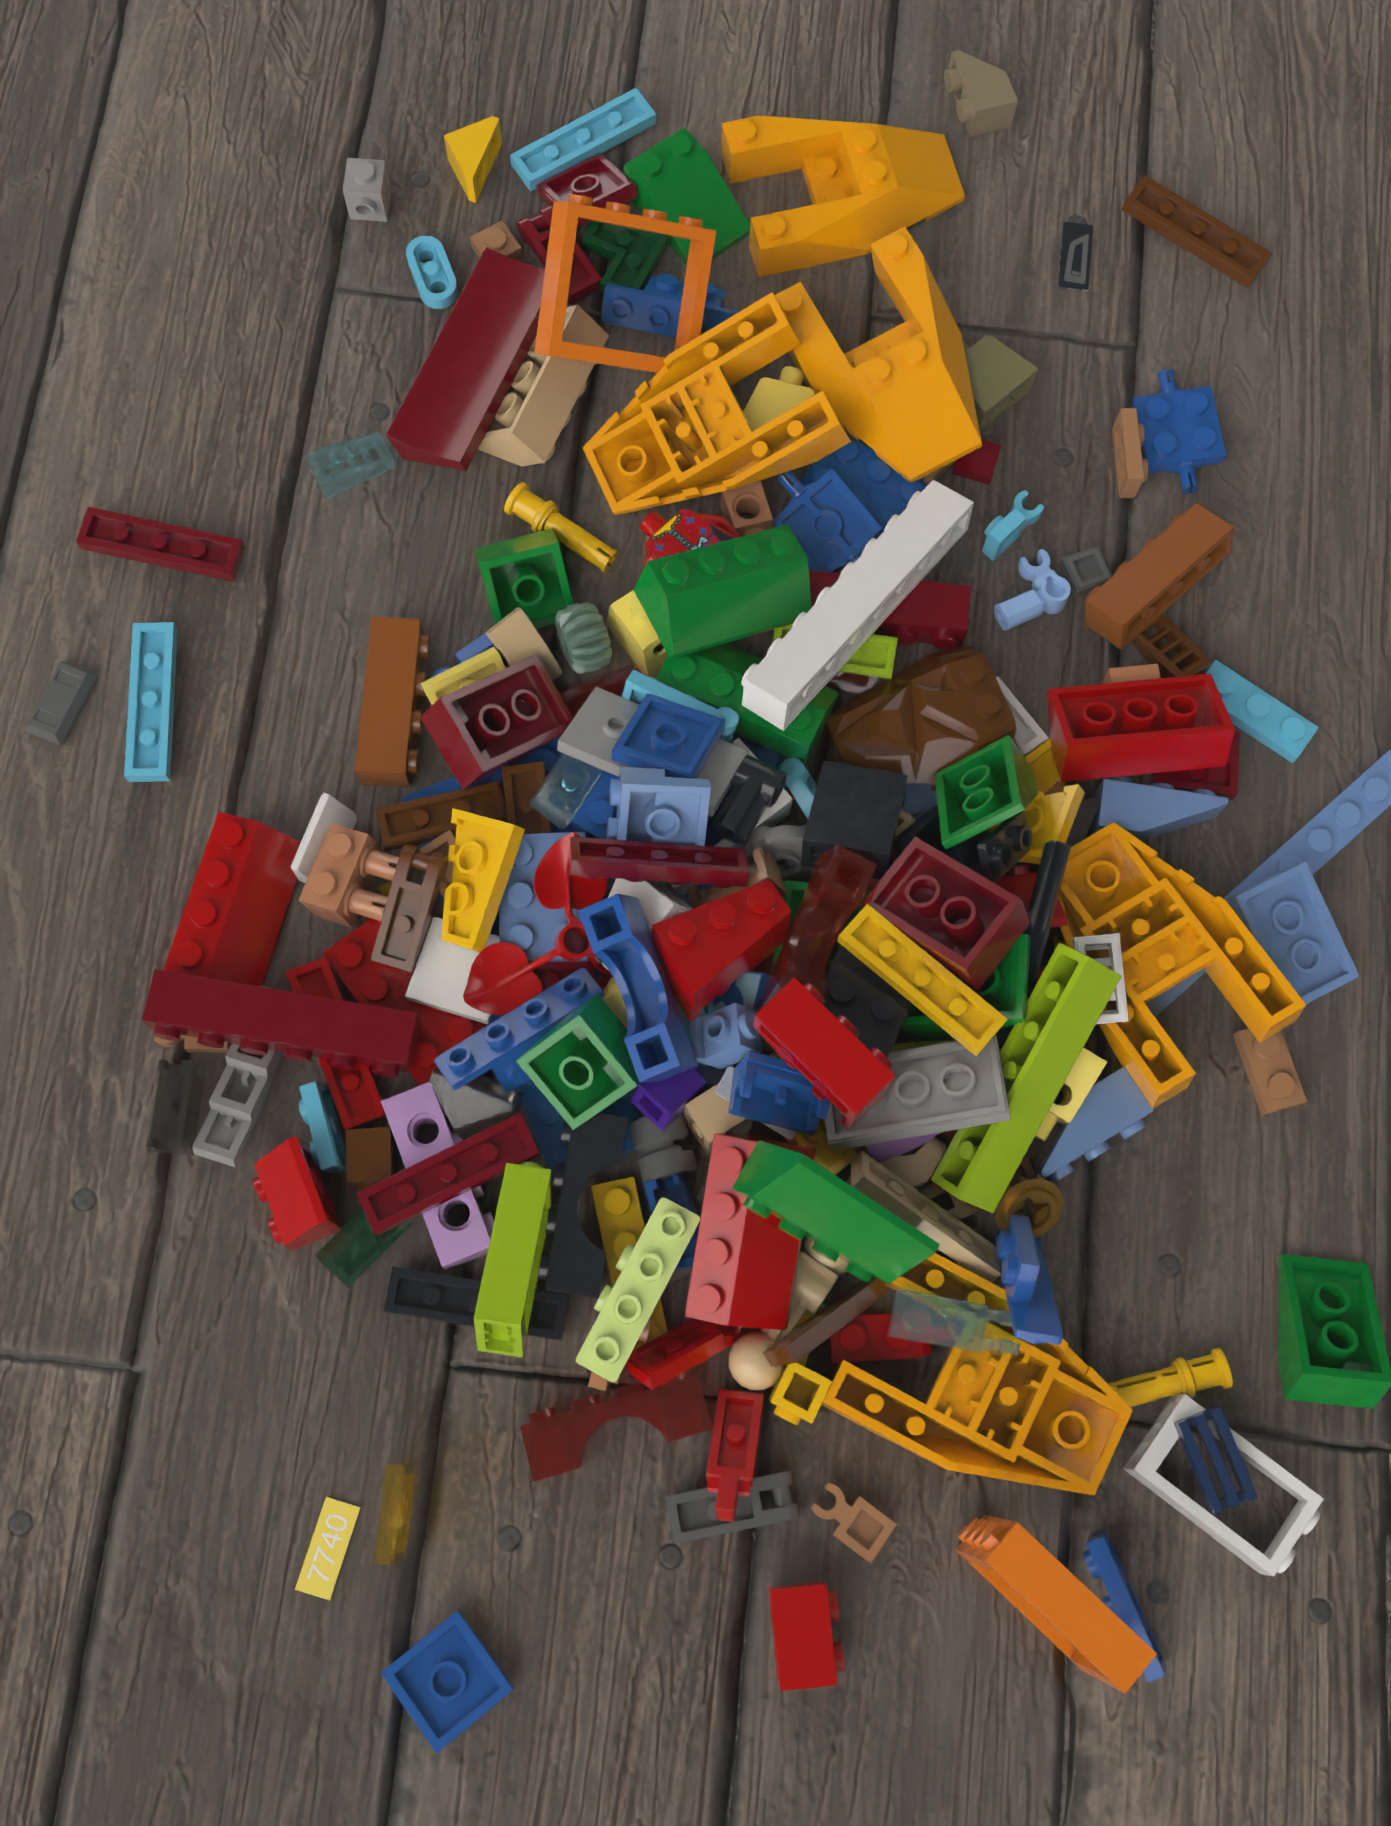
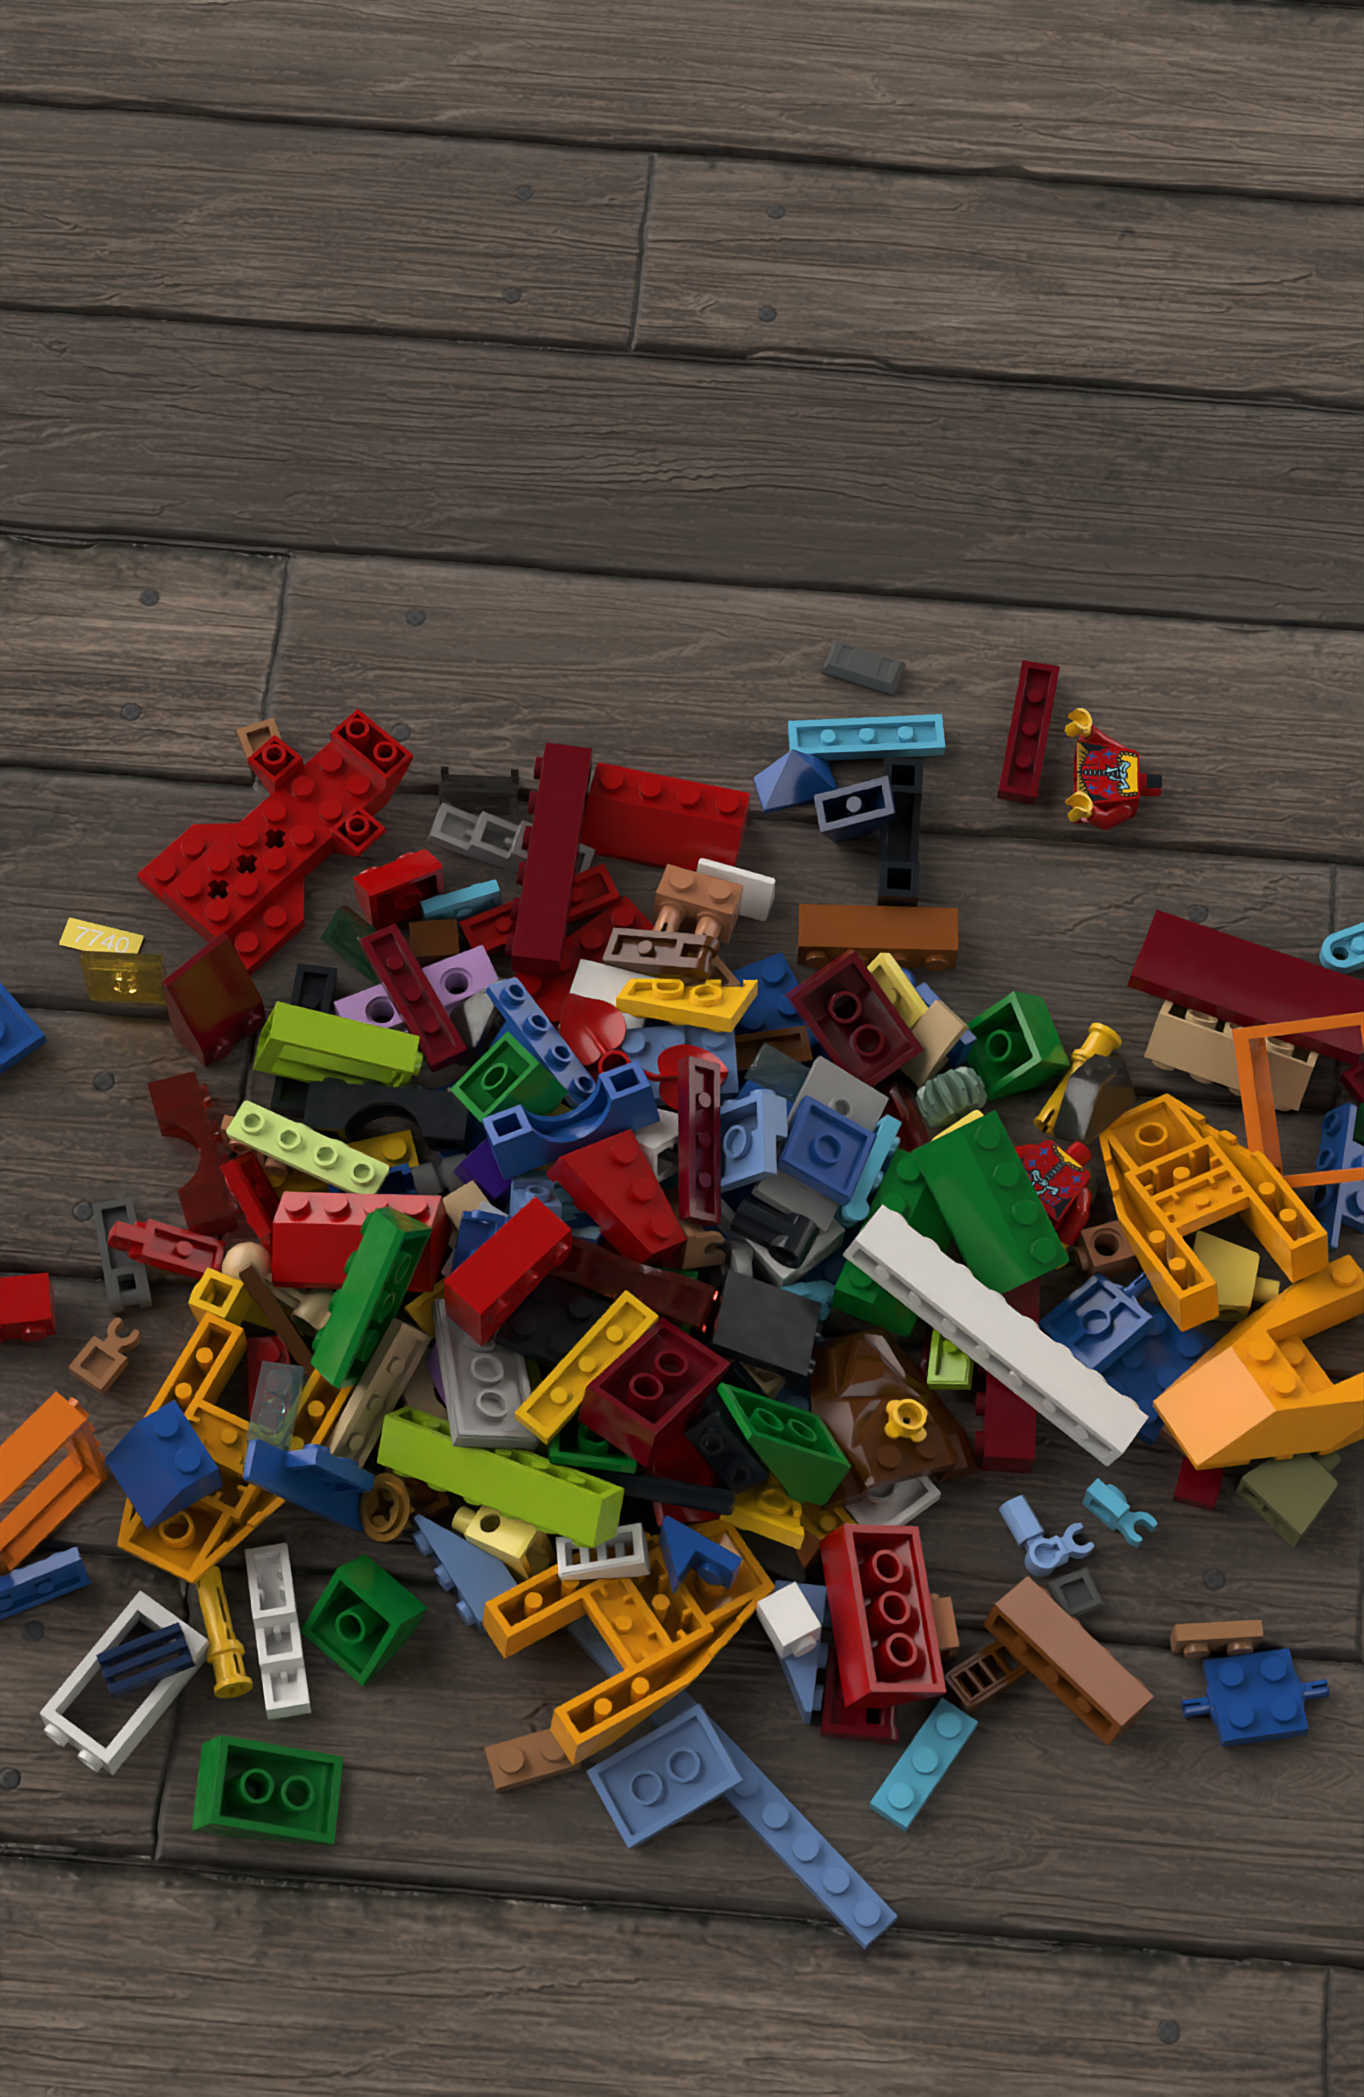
camera: 90 degrees right, 10 degrees down
(86, 1360) = (255, 735): none -> medium nougat plate
(182, 1297) = (309, 811): none -> red piece
(197, 777) = (793, 781): none -> blue slope
(225, 474) = (1105, 776): none -> torso
(238, 668) = (900, 836): none -> black arch
(247, 703) = (855, 809): none -> dark blue slope
(345, 479) = (1135, 867): clear light blue slope -> none
(430, 817) = (754, 961): reddish brown tile -> none
(441, 1402) = (212, 1001): none -> dark red slope
(593, 509) = (1093, 1099): none -> clear smoke slope
(952, 676) = (908, 1410): none -> yellow plate
(1015, 1442) = (163, 1465): none -> blue slope
(1099, 896) = (687, 1549): none -> blue slope
(1142, 1231) = (363, 1618): none -> green slope
(1152, 807) = (789, 1621): none -> white brick
(1156, 1323) = (277, 1631): none -> white slope

